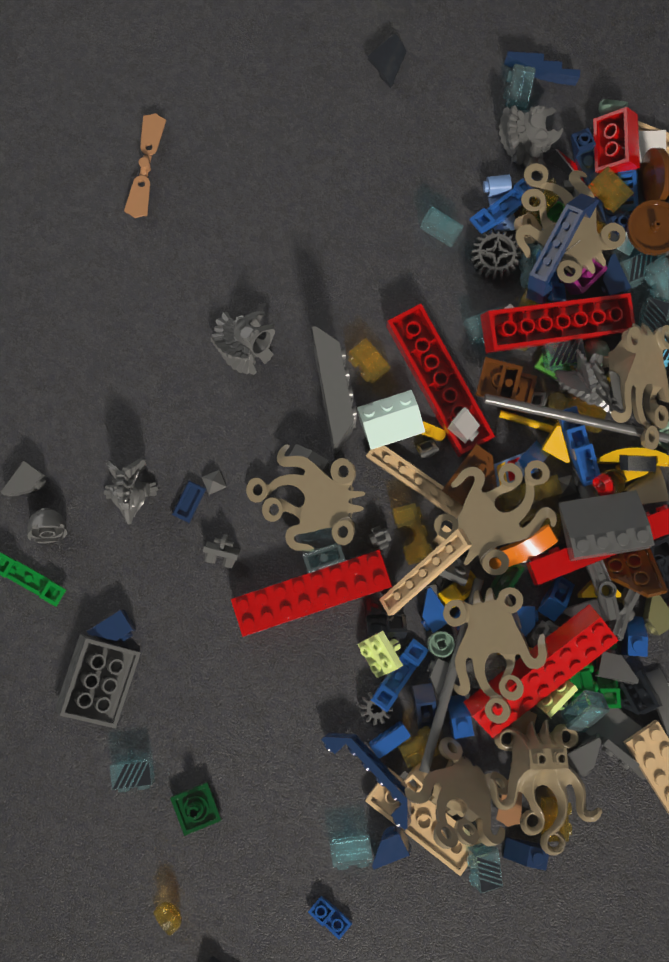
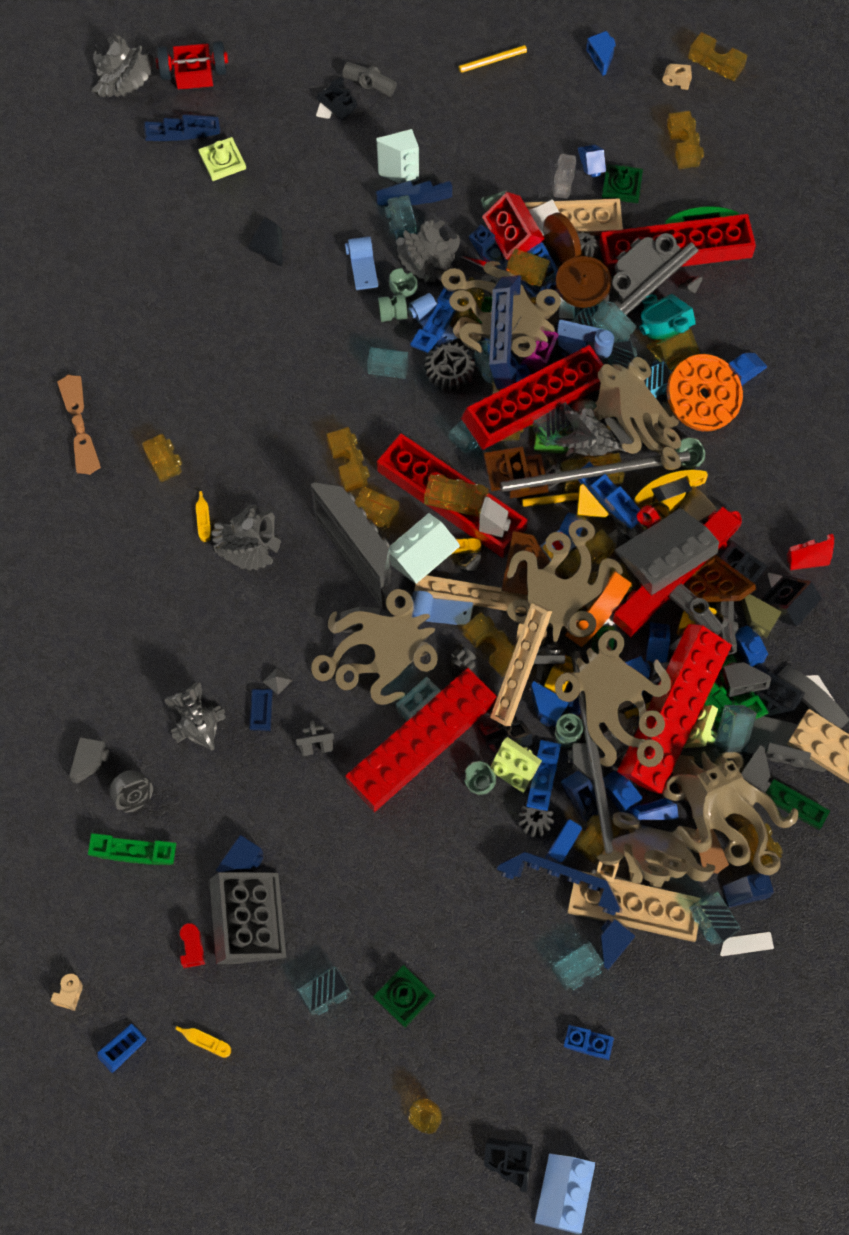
camera: 20 degrees left, 15 degrees down
(20, 769) = (206, 1041): none -> yellow piece
(42, 686) = (193, 946): none -> red leg
(203, 230) = (162, 458): none -> clear yellow brick
(215, 303) = (203, 519): none -> yellow piece
(345, 651) = (480, 778): none -> sand green hair
(363, 320) = (343, 444): none -> clear yellow arch
(382, 482) = (441, 610): none -> medium blue door
(442, 387) = (455, 495): none -> clear yellow brick
(464, 117) = (362, 262): none -> medium blue door
(470, 174) = (392, 308): none -> sand green wheel
(484, 750) = (657, 810): none -> blue slope
(490, 153) = (402, 282): none -> sand green hair
(506, 896) = (747, 944): none -> white sticker
(543, 25) = (398, 157): none -> light aqua slope
(605, 798) = (787, 799): none -> dark green plate
(644, 294) = (602, 339): none -> medium blue door

